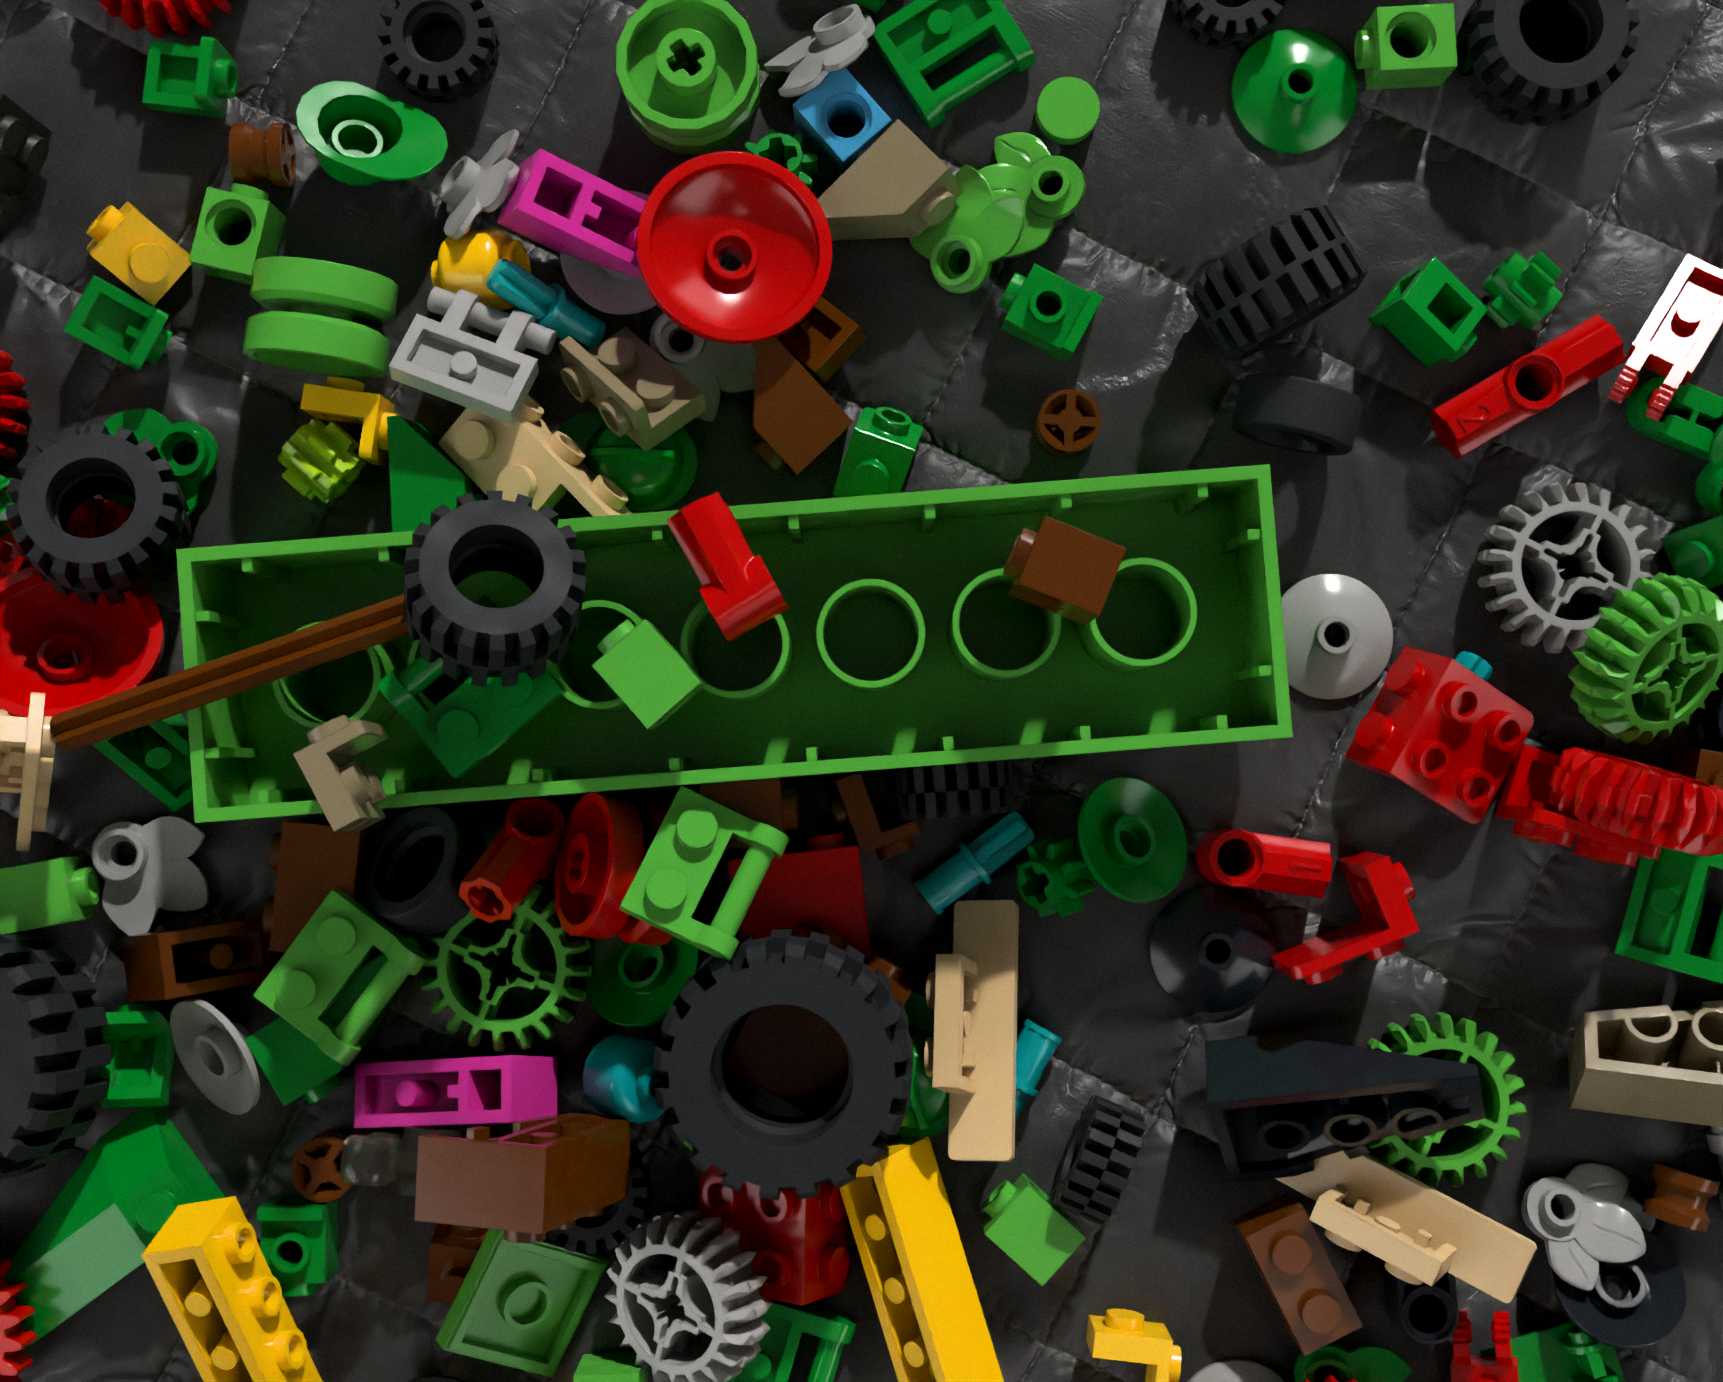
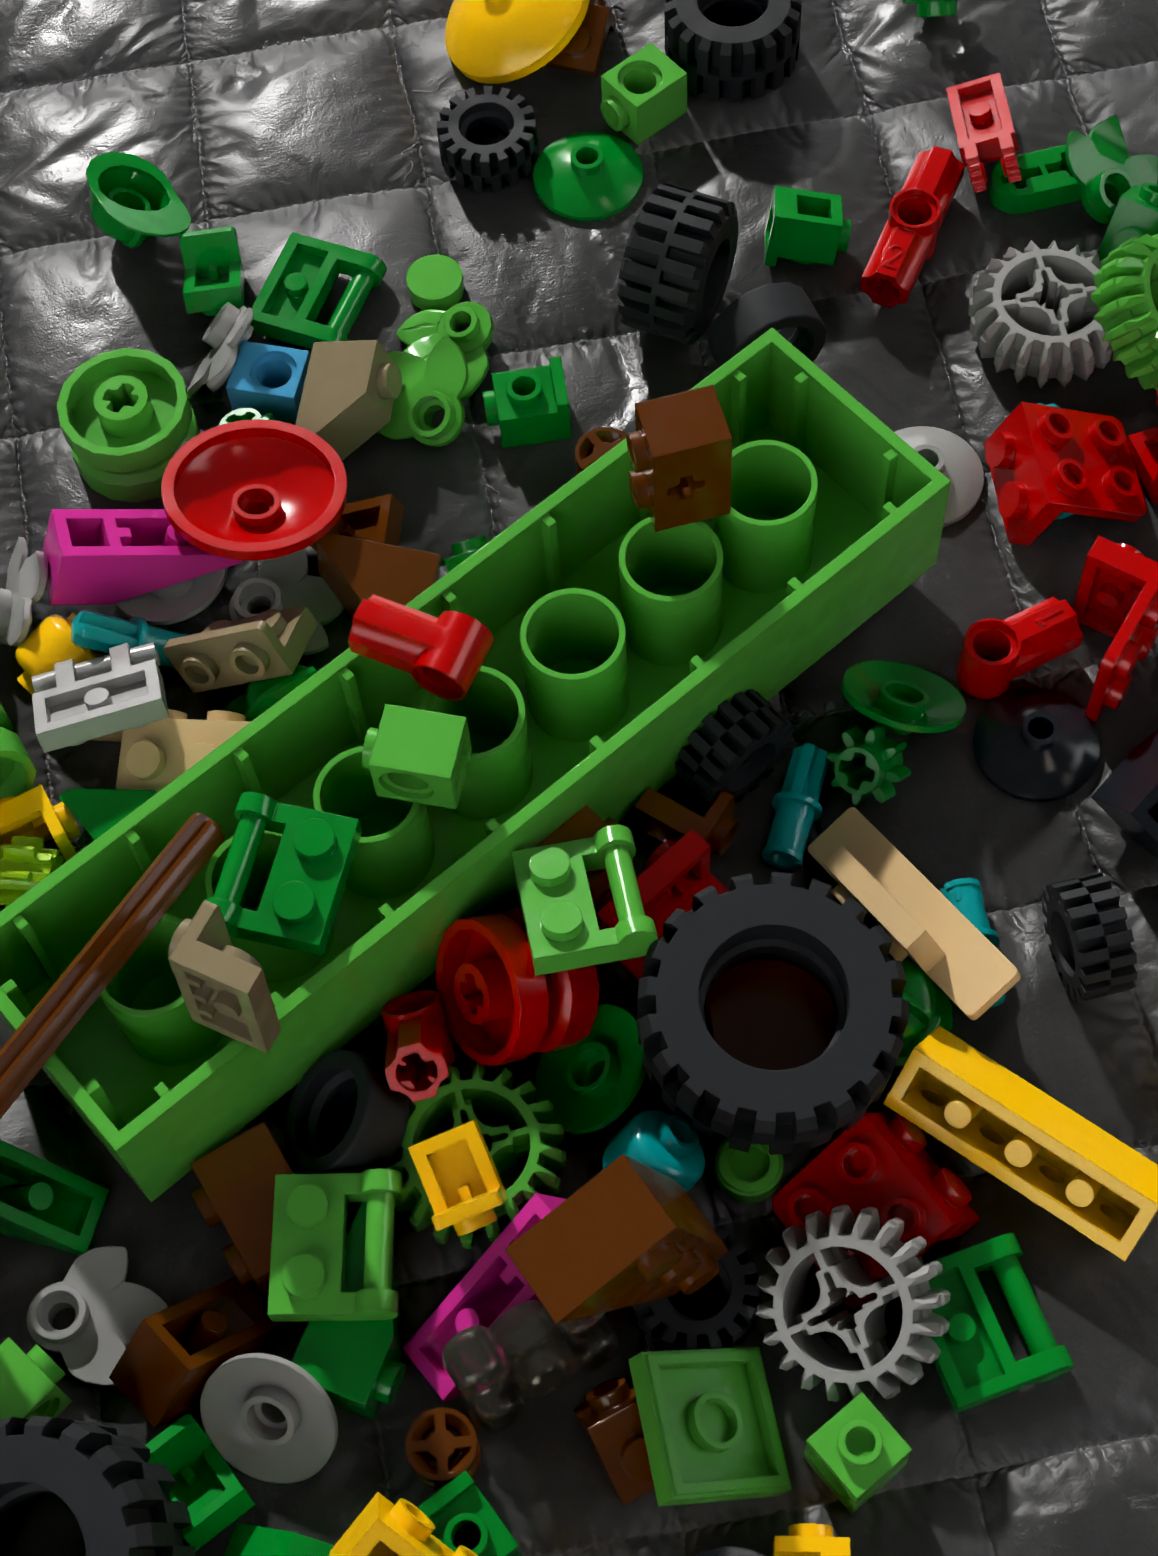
camera: 30 degrees left, 25 degrees down
(462, 1003) = (459, 1178): none -> yellow bracket
(502, 539) = (246, 762): black tyre -> none
(1030, 1227) = (1085, 1041): bright green brick -> none
(1522, 290) = (854, 173): green gear -> none

